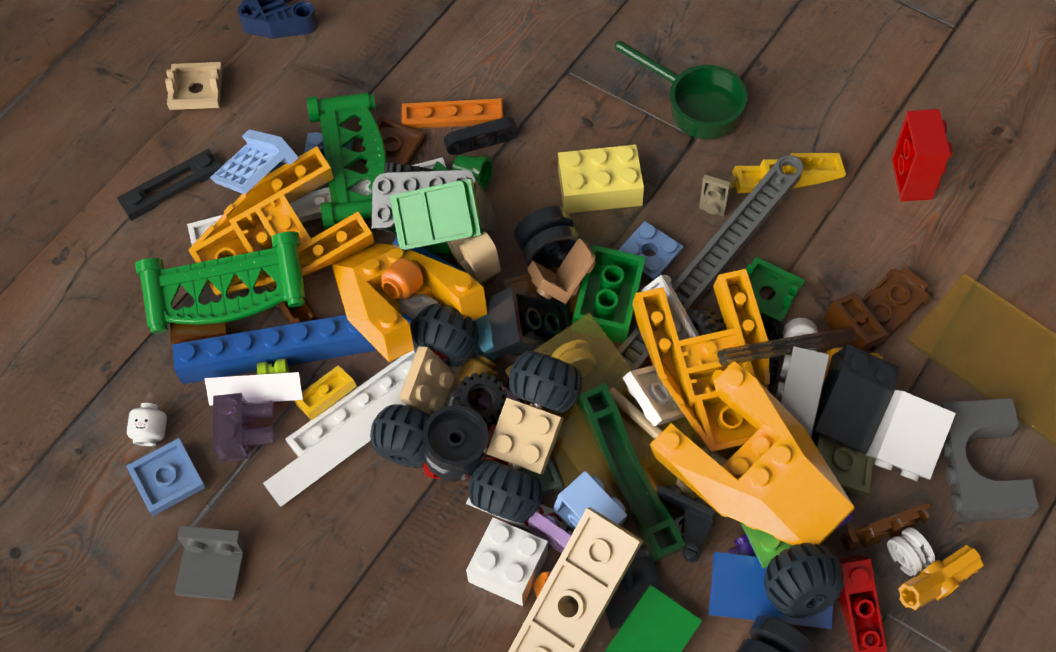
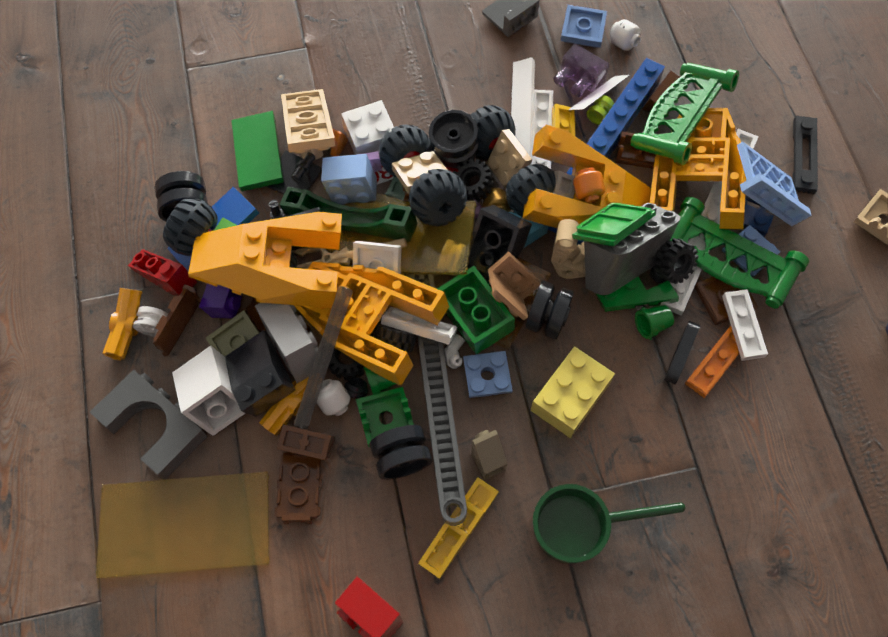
camera: 130 degrees right, 5 degrees up
(413, 107) = (744, 325): none -> white plate
(788, 240) = (400, 452): none -> black wheel

